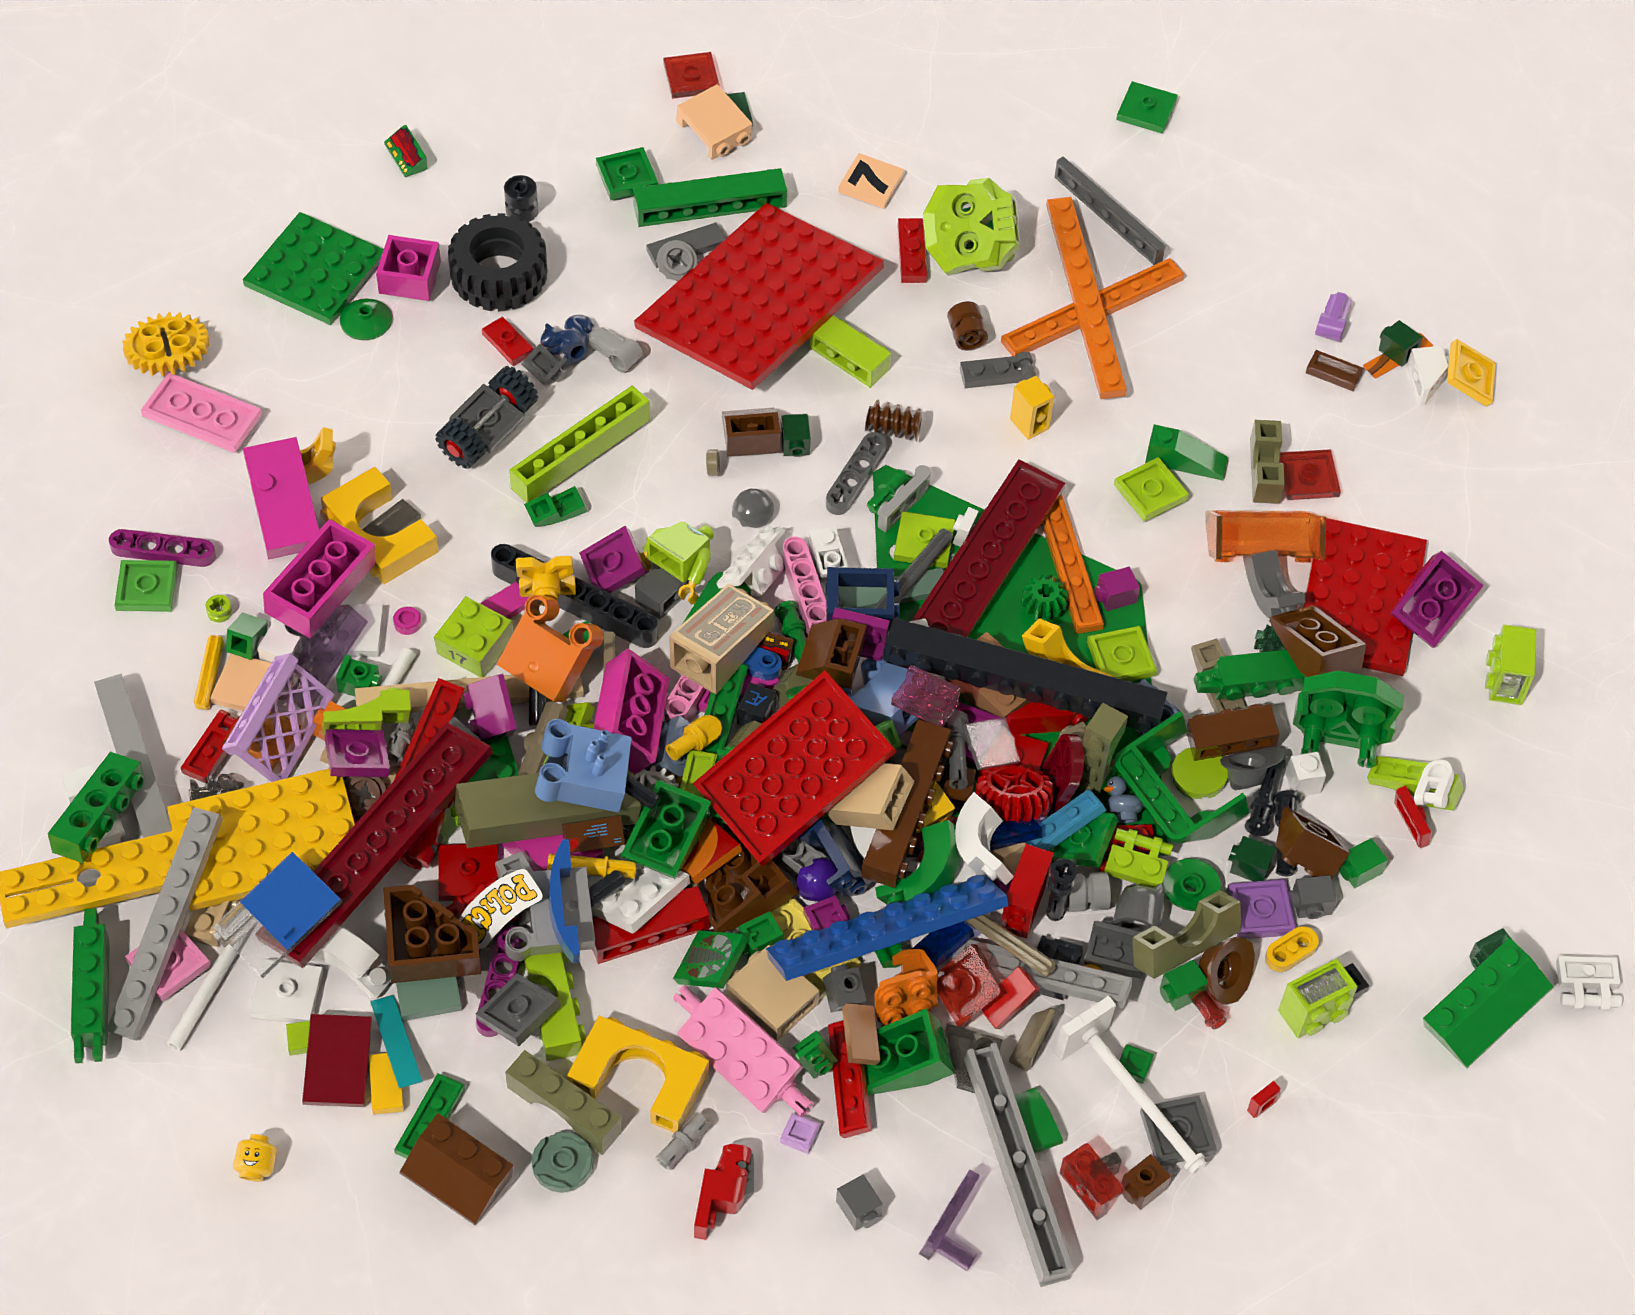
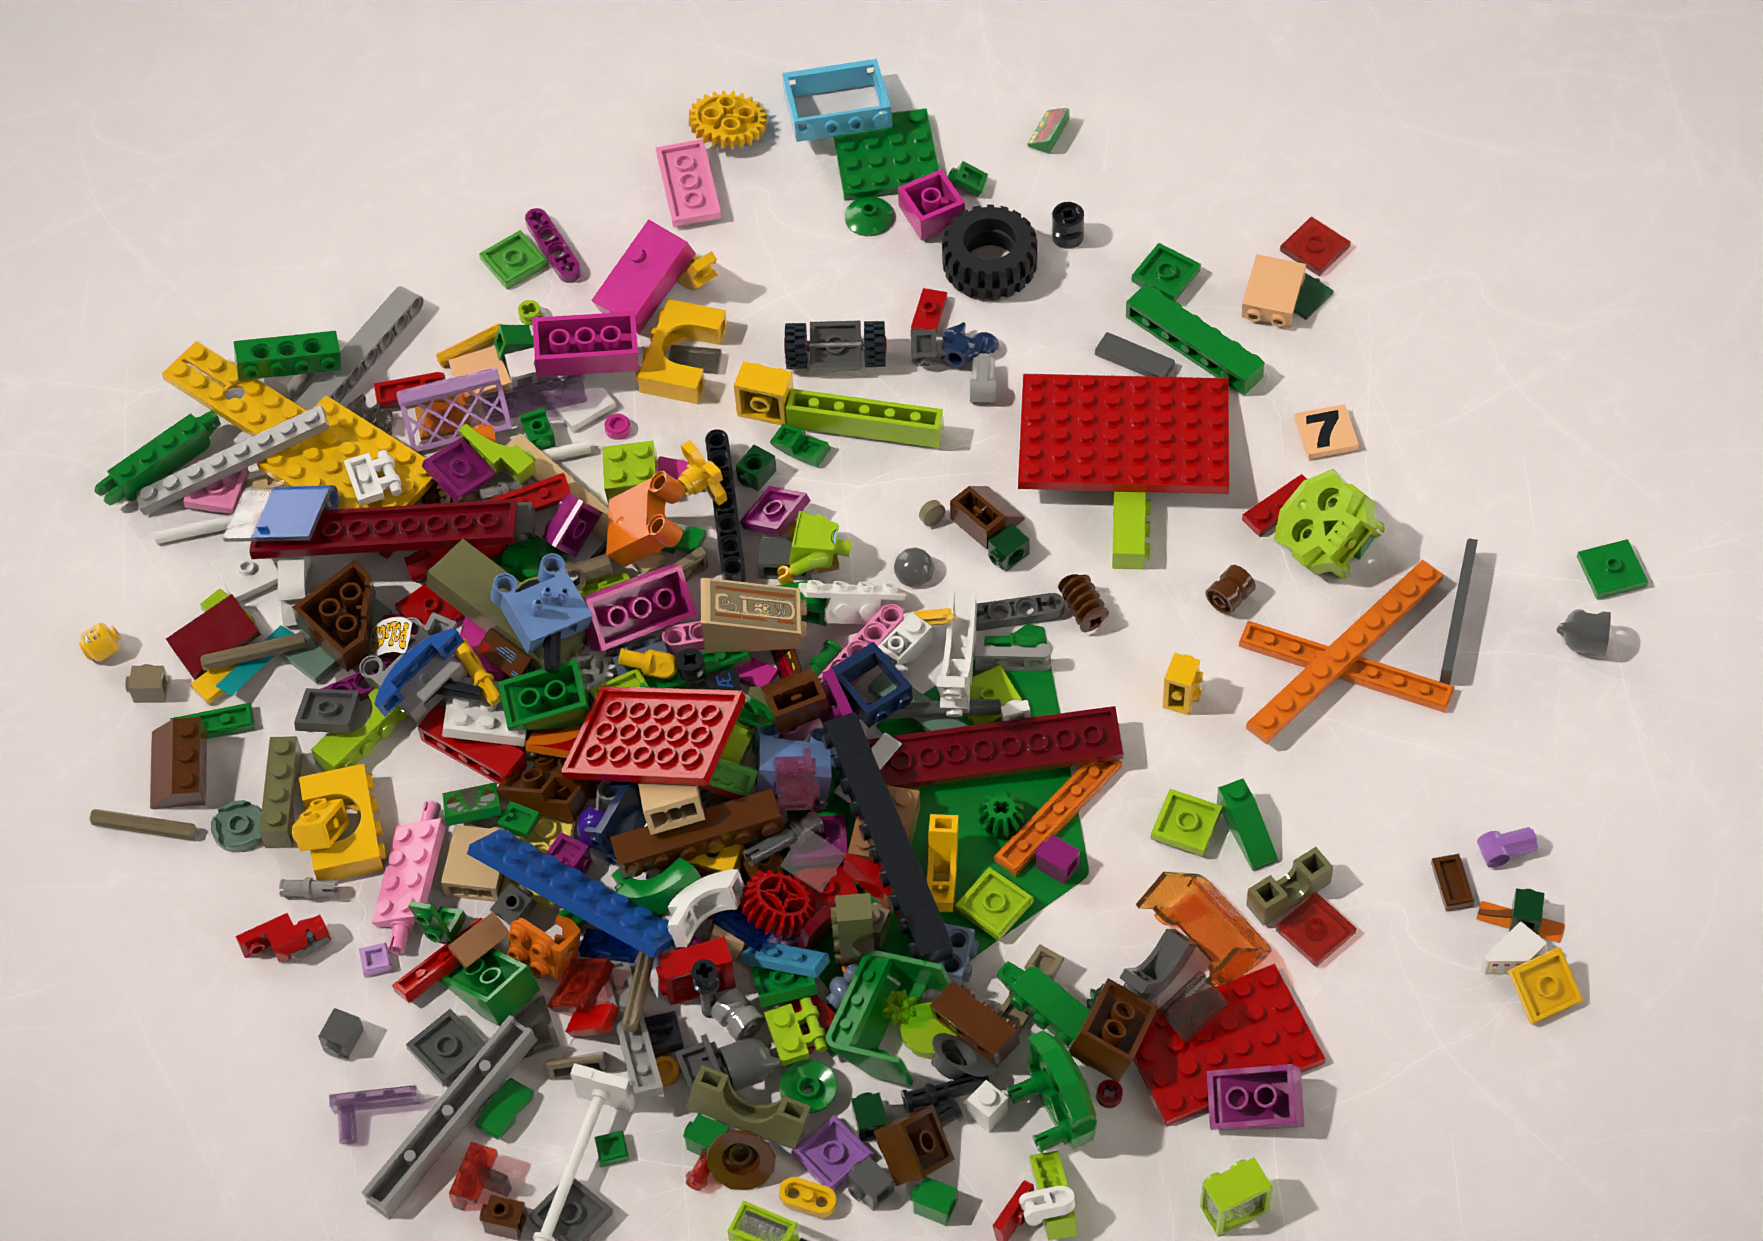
camera: 60 degrees right, 0 degrees up
(209, 238) = (833, 79): none -> medium azure window
(303, 826) = (365, 481): none -> white plate
(340, 1144) = (147, 684): none -> dark tan brick
(390, 1035) = (253, 651): none -> dark tan axle
(403, 227) = (968, 178): none -> green bracket
(490, 493) = (762, 393): none -> yellow brick
(490, 1240) = (143, 824): none -> dark tan axle
(551, 540) = (756, 468): none -> dark green brick
(635, 1087) = (320, 824): none -> yellow brick
(671, 249) = (1096, 355): light grey gear -> none
(729, 715) = (688, 671): none -> black wheel
(759, 669) = (764, 659): blue plate -> none
(831, 516) = (936, 616): none -> yellow axle
(861, 517) = (959, 654): none -> white arch
(939, 1128) = (445, 1047): none -> dark grey plate
(997, 370) = (1210, 641): dark grey plate -> none
(1176, 767) = (902, 1014): none -> clear neon green gear
(1197, 151) = (1586, 631): none -> dark grey piece
(1332, 582) = (1193, 1006): none -> clear smoke plate

